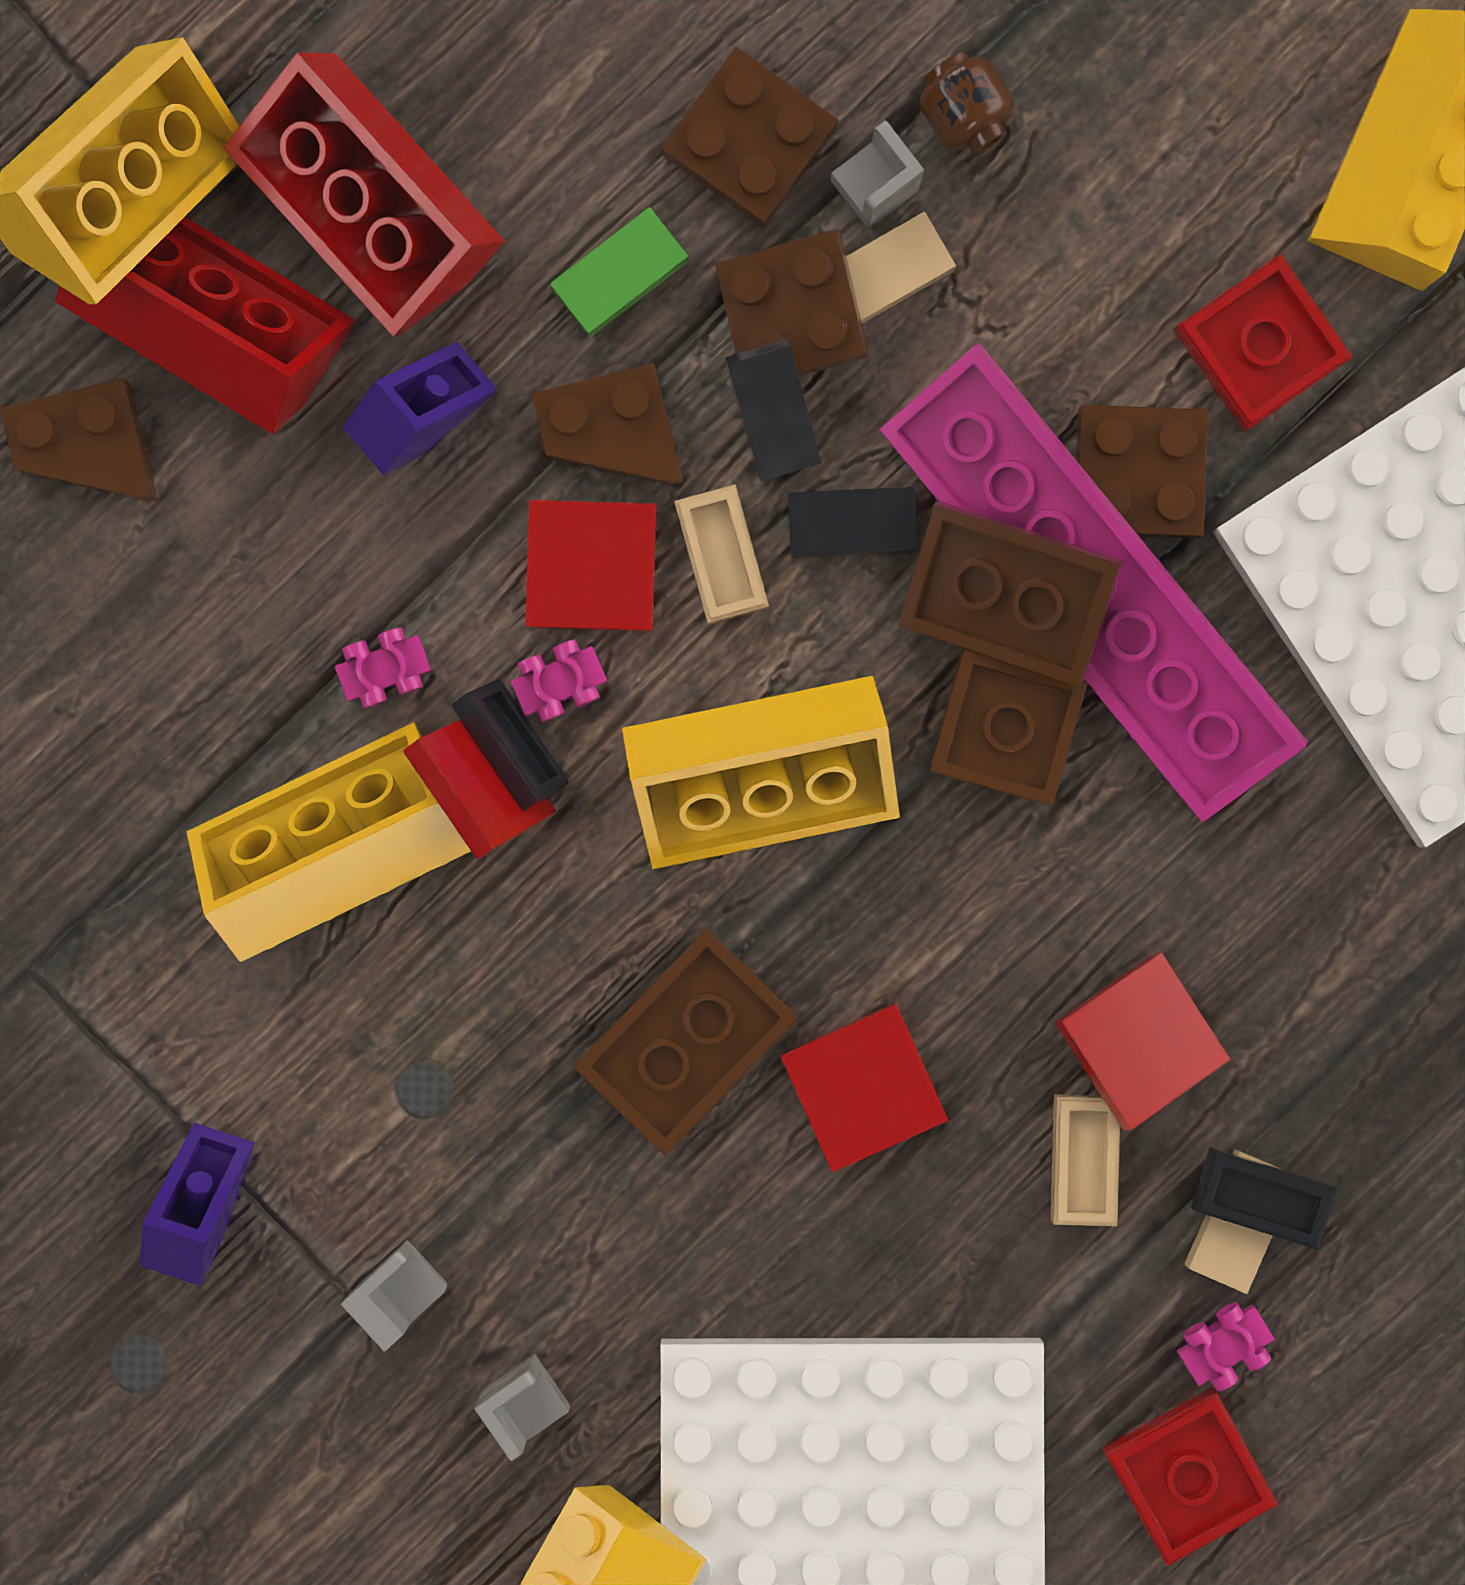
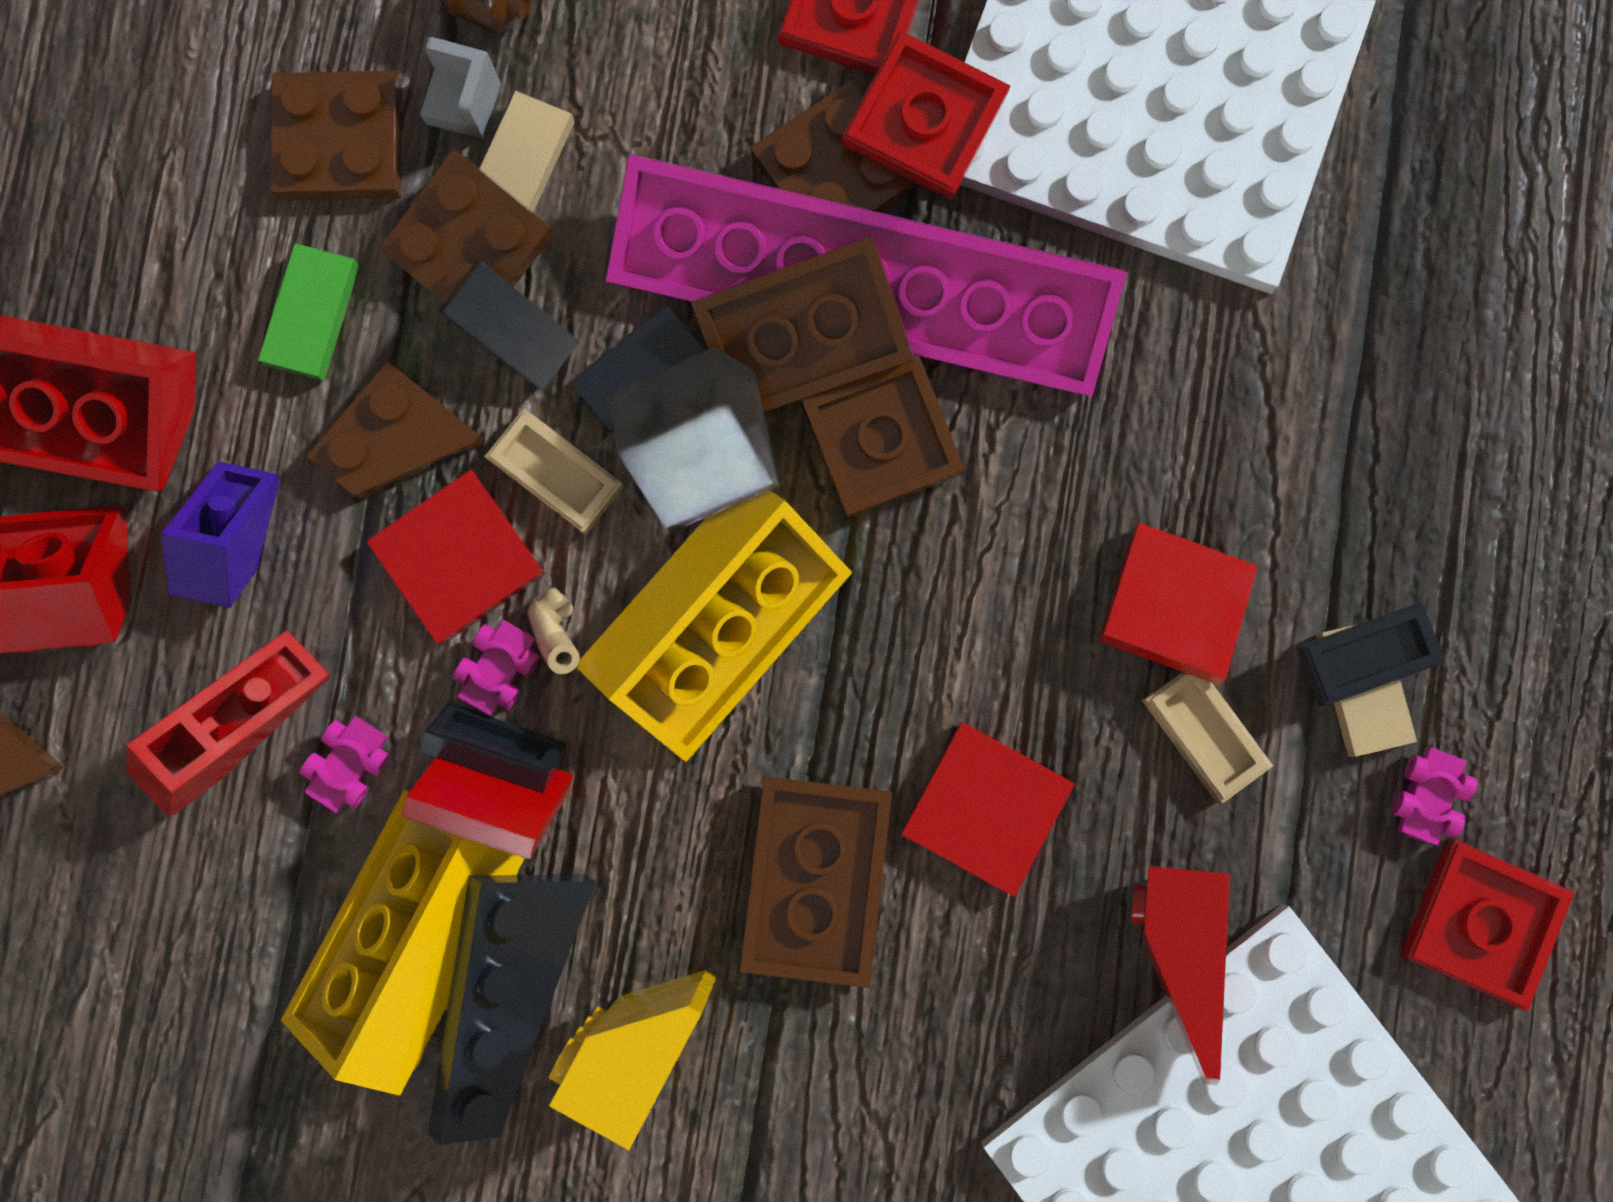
camera: 35 degrees left, 5 degrees down
(311, 564) = (222, 724): none -> red slope
(382, 936) = (502, 983): none -> black wing
(450, 1067) = (626, 1054): none -> yellow slope
(619, 688) = (550, 636): none -> tan arm
(854, 619) = (695, 438): none -> clear smoke slope
(939, 1309) = (1187, 945): none -> red slope
(1245, 489) = (925, 115): none -> red tile

